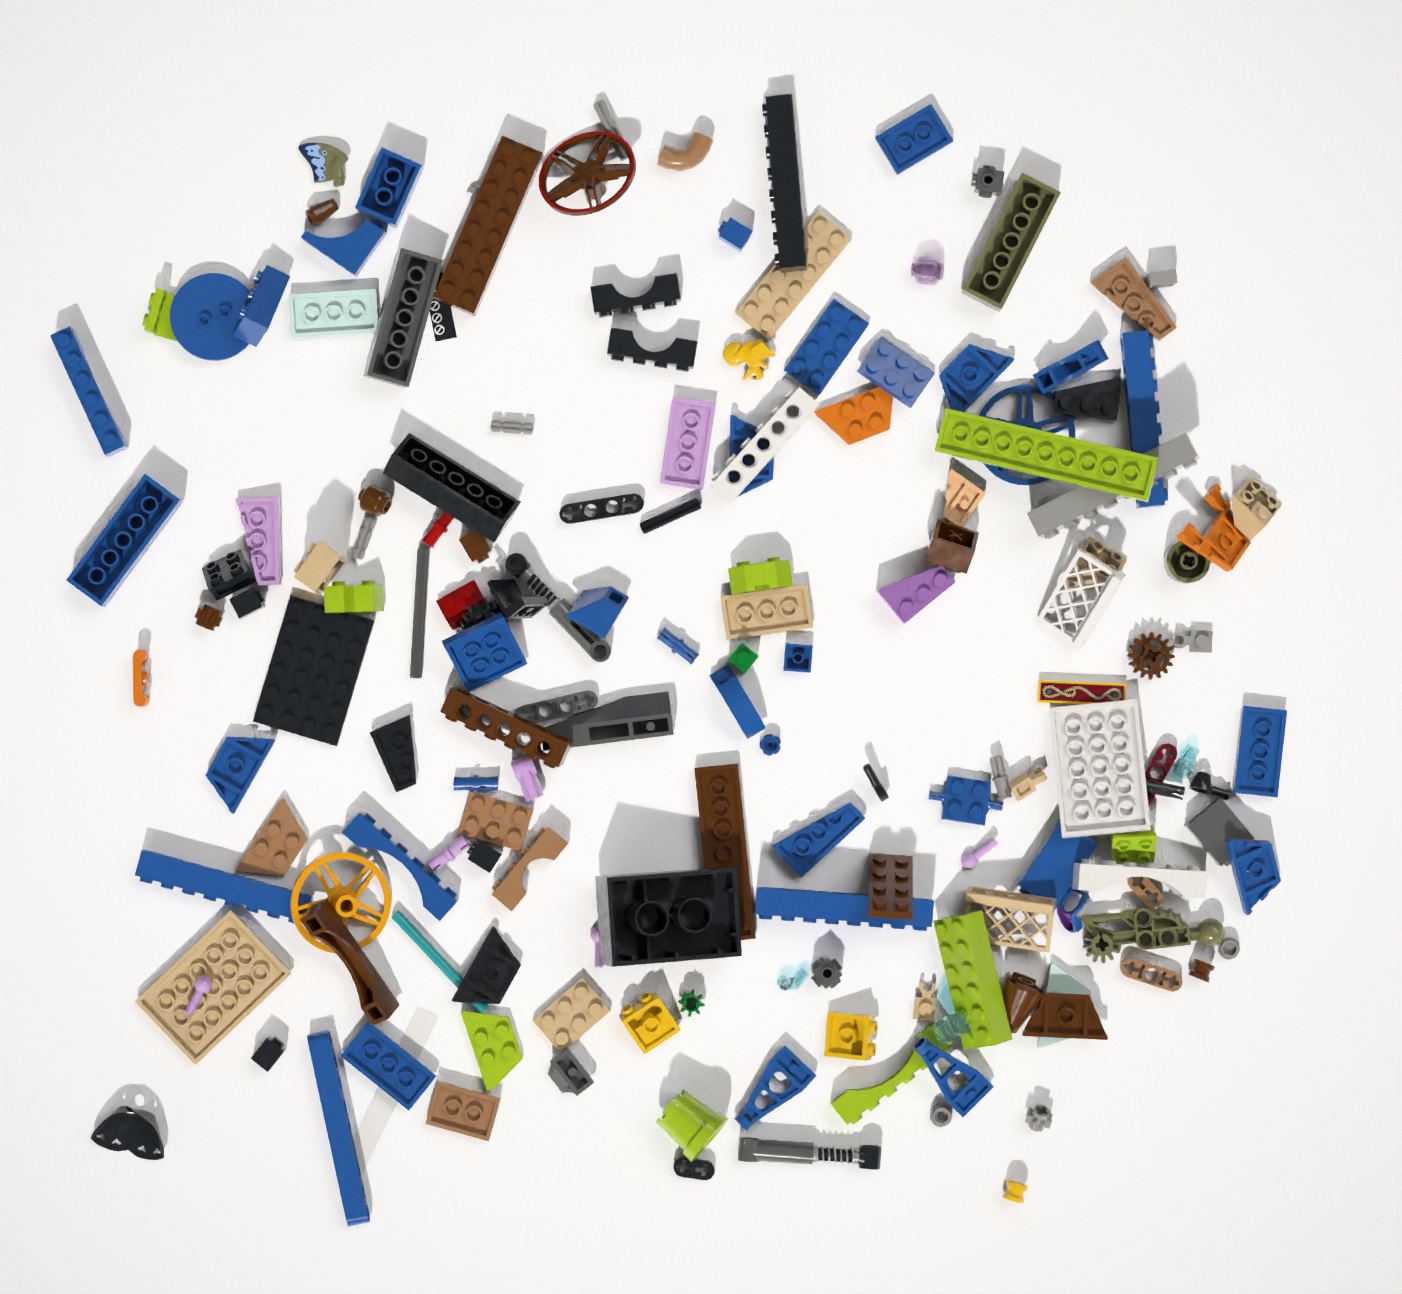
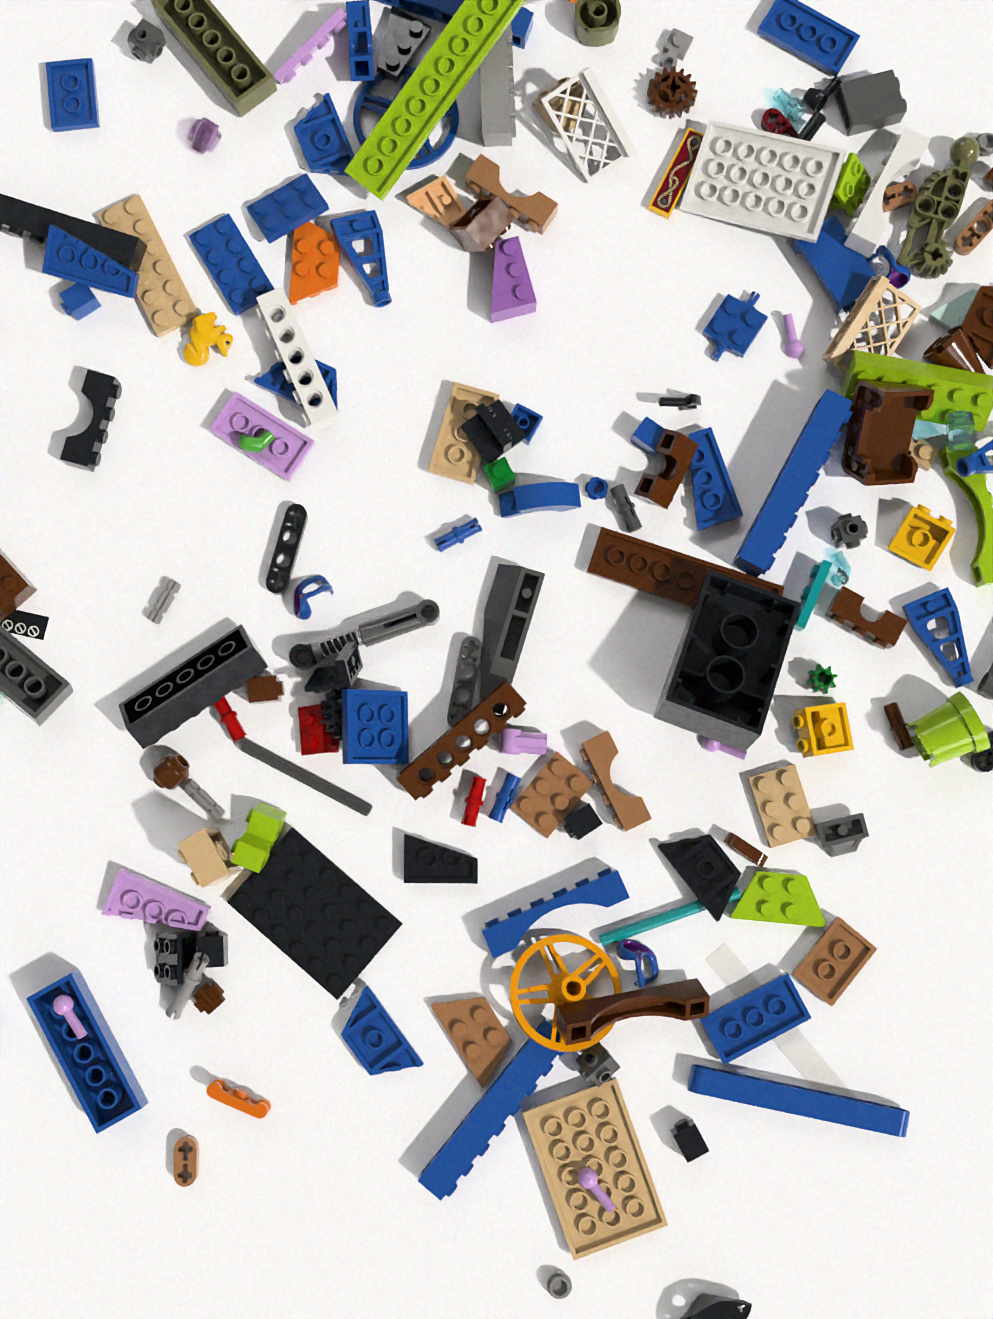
camera: 60 degrees left, 5 degrees down
(76, 663) = (180, 1160): none -> medium nougat beam
(110, 999) = (559, 1285): none -> light grey plate
(152, 507) = (64, 1006): none -> lavender bar
(217, 597) = (190, 978): none -> light grey pin
(295, 953) = (597, 1064): none -> dark grey brick
(399, 944) = (635, 951): none -> blue piece
(448, 853) = (563, 857): lavender pin -> none
(461, 759) = (473, 801): none -> red pin
(521, 999) = (745, 849): none -> reddish brown beam
(561, 541) = (301, 606): none -> blue piece
(598, 609) = (385, 593): blue slope -> none
(670, 515) = (325, 484): black axle -> none
(676, 443) = (255, 444): none -> bright green arm
(679, 353) = (138, 453): black arch -> none
(680, 1083) = (898, 726): none -> reddish brown axle
(755, 1037) = (846, 611): none -> reddish brown arch
(759, 963) = (810, 593): none -> teal plate
(760, 576) = (425, 422): lime brick -> none
(762, 227) = (81, 263): none -> blue wing
(763, 777) = (626, 508): none -> dark grey pin
(777, 637) = (493, 431): none -> black bracket
(793, 799) = (677, 454): none -> reddish brown arch
(834, 771) = (647, 435): none -> blue brick
(890, 886) = (794, 426): reddish brown plate -> none
(904, 439) = (359, 227): none -> blue plate
(919, 965) = (882, 432): none -> reddish brown windscreen
(988, 585) = (533, 211): none -> medium nougat arch
(1000, 777) = (727, 283): light grey axle -> none
(1025, 784) = (743, 261): tan plate -> none
(1047, 325) = (315, 42): none -> lavender wing
(1253, 870) = (922, 85): blue wing -> none

